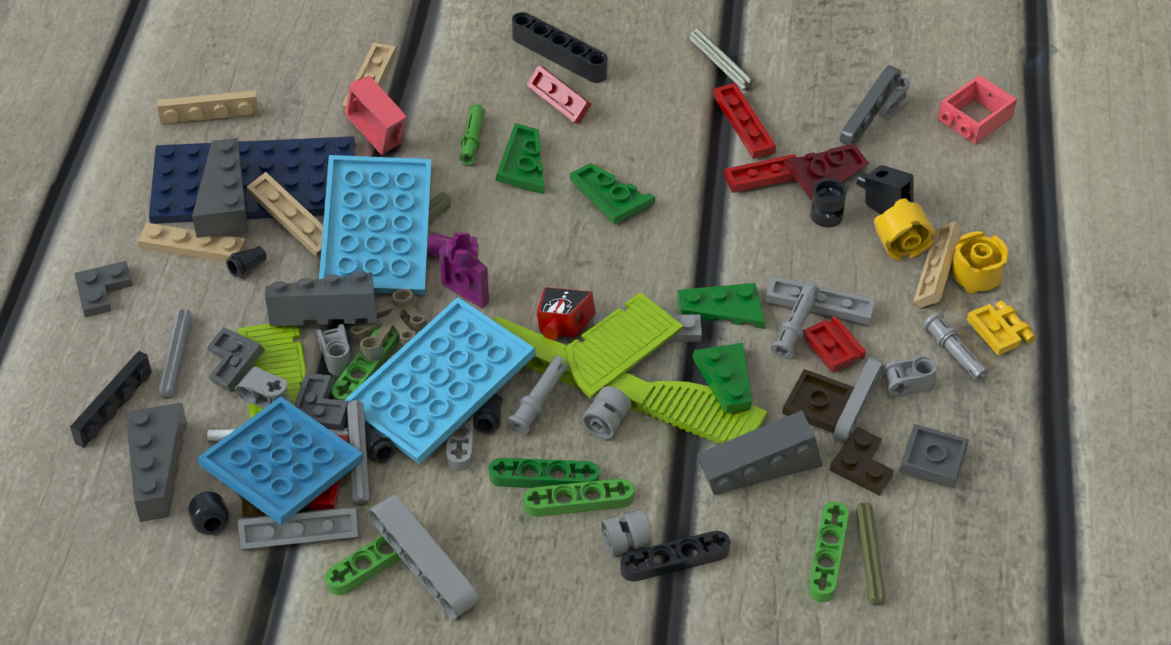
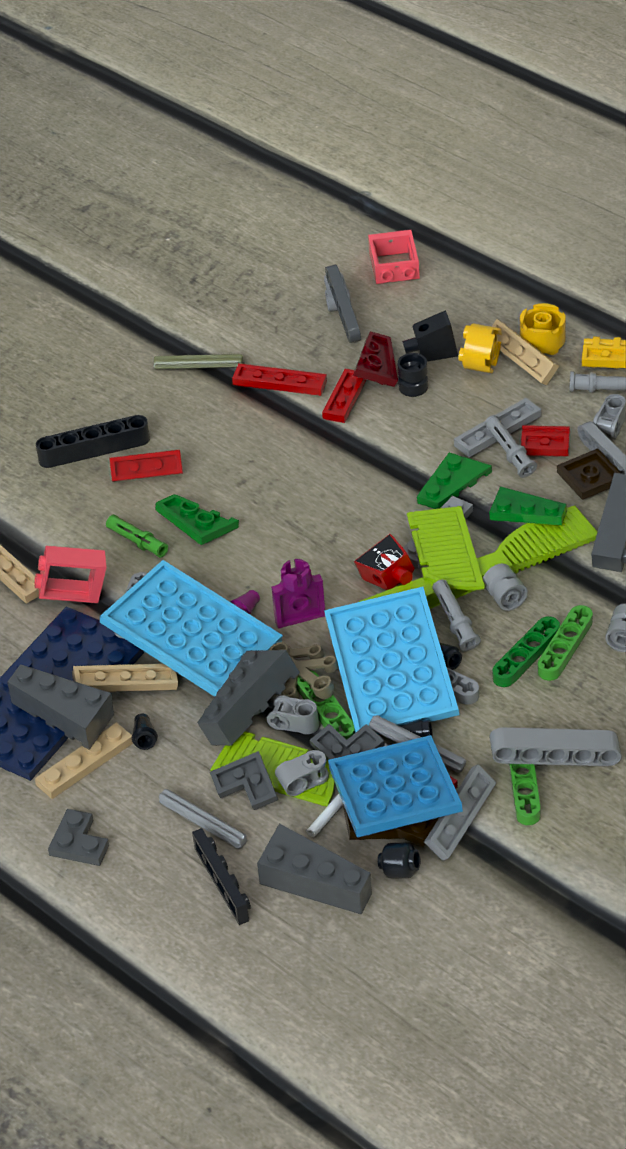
camera: 50 degrees left, 5 degrees down
(609, 195) = (283, 488): green wing -> none

